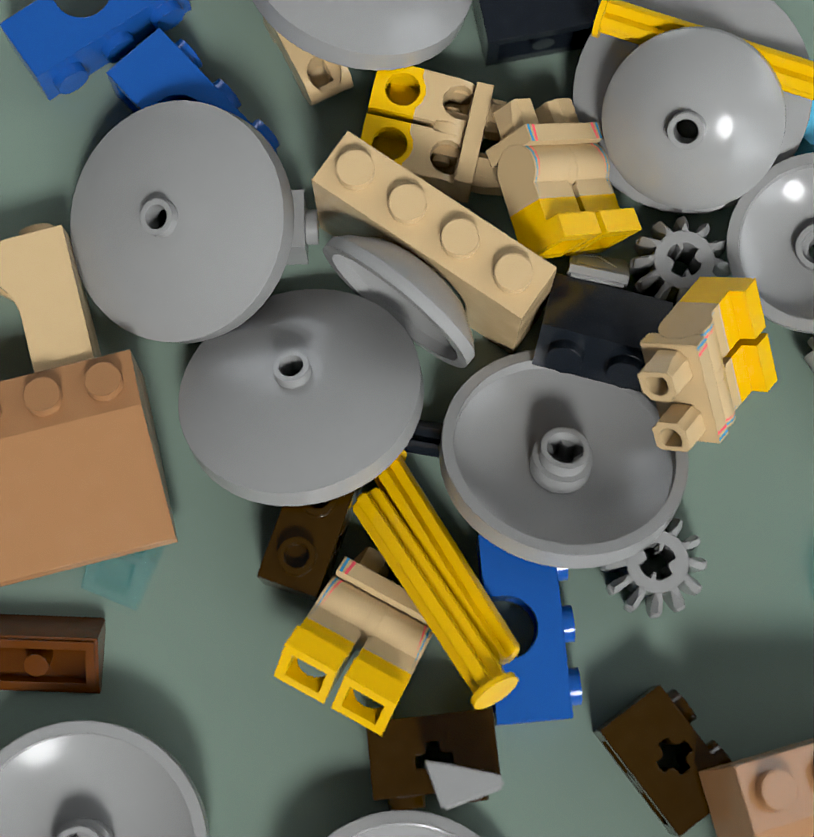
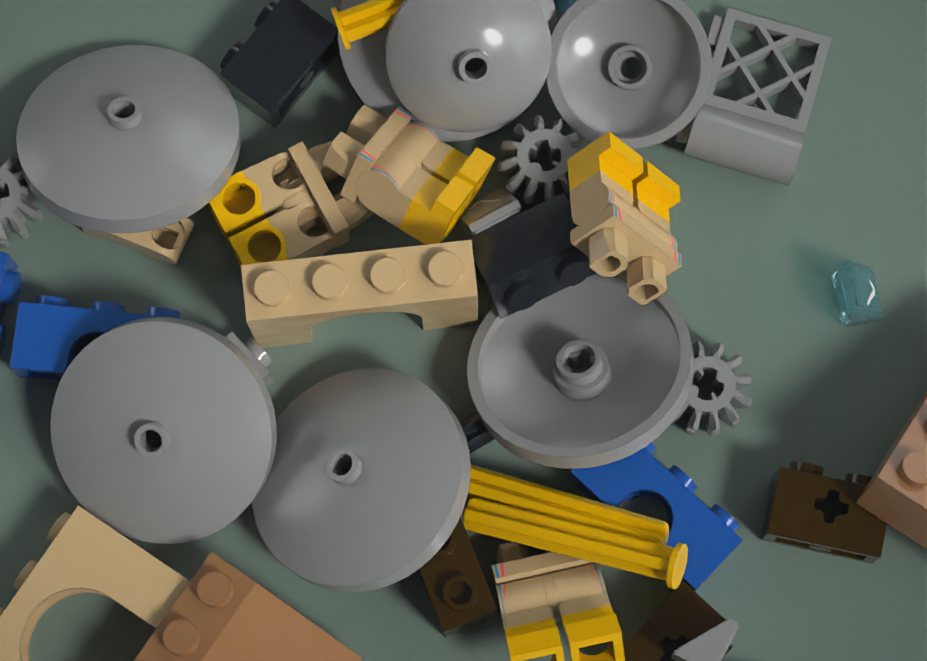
camera: 40 degrees left, 0 degrees up
(407, 291) = (376, 341): light grey dish -> none

